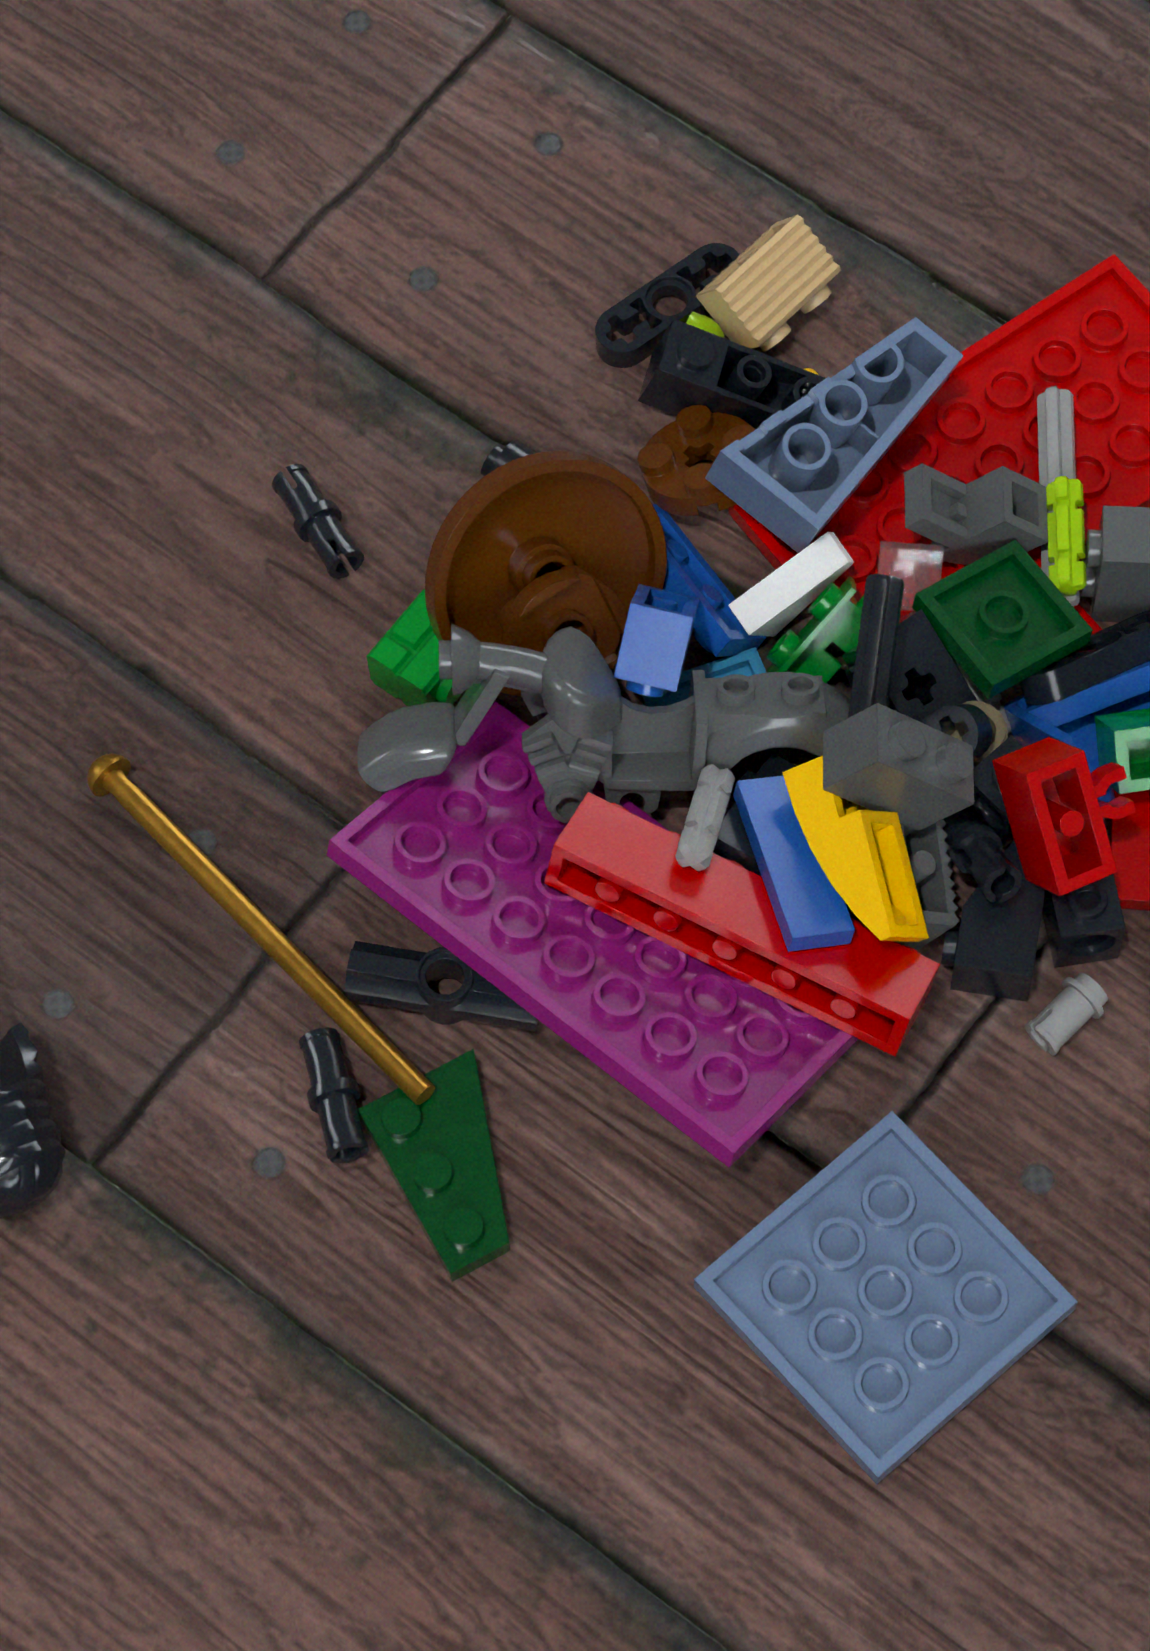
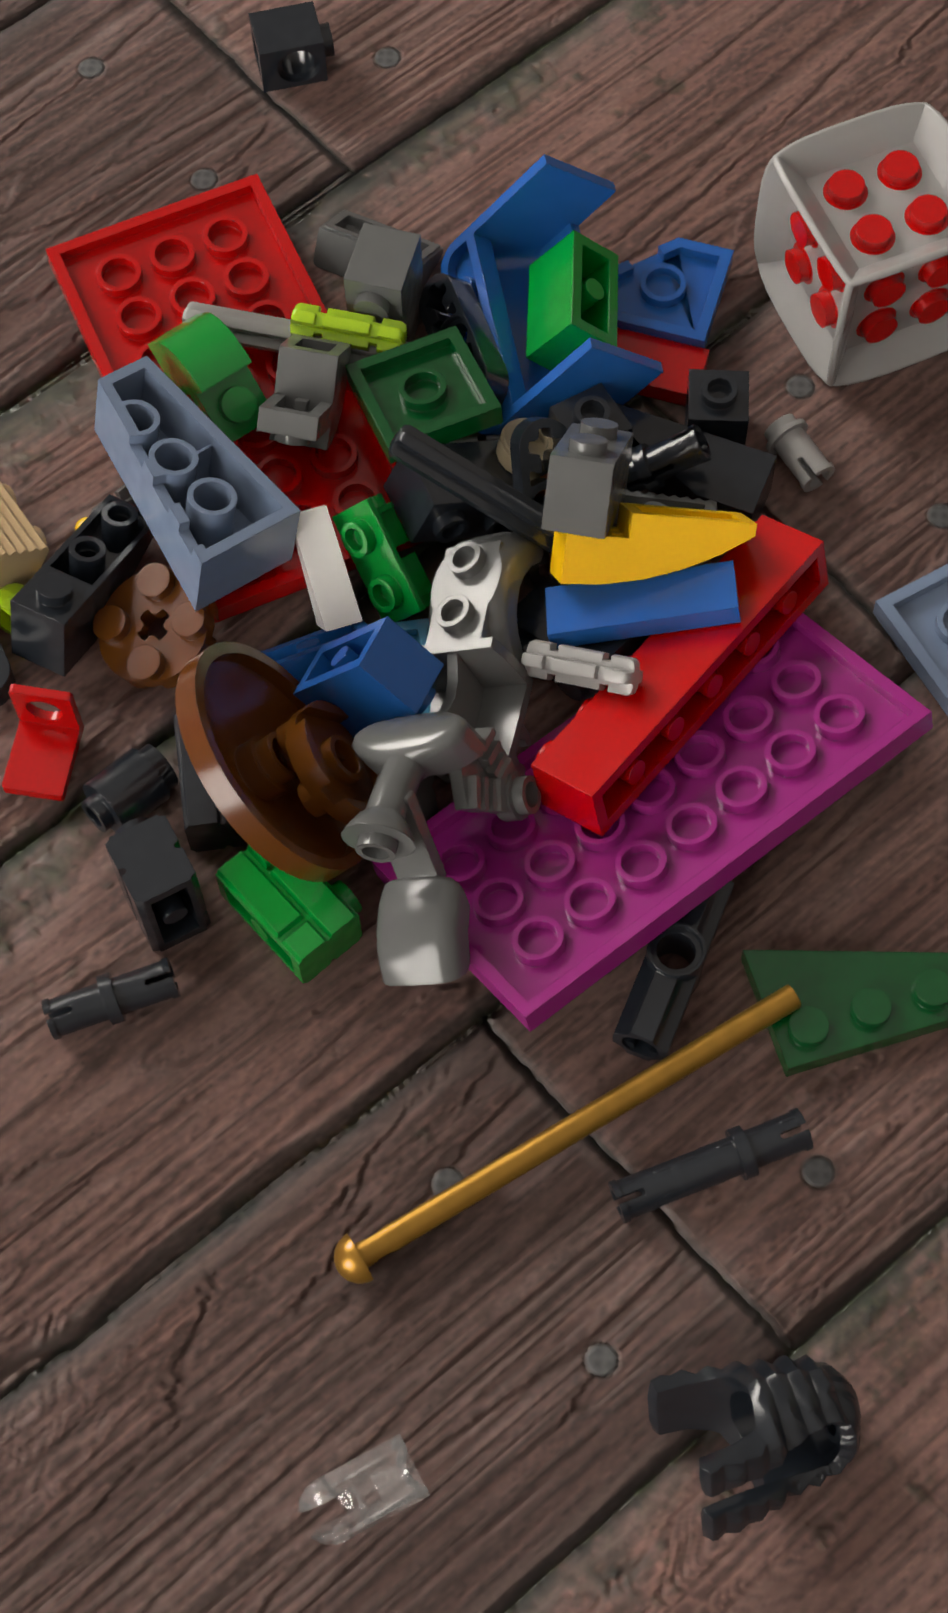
camera: 80 degrees left, 0 degrees up
(261, 1076) = (711, 1164): none -> black pin
(333, 1095) = (769, 1089): black pin -> none
(411, 511) = (158, 881): none -> black brick
(551, 402) = (43, 743): none -> red bracket
(914, 563) = (348, 465): clear plate -> none
(980, 417) = (213, 370): none -> green brick
(1058, 814) = (653, 375): red brick -> none

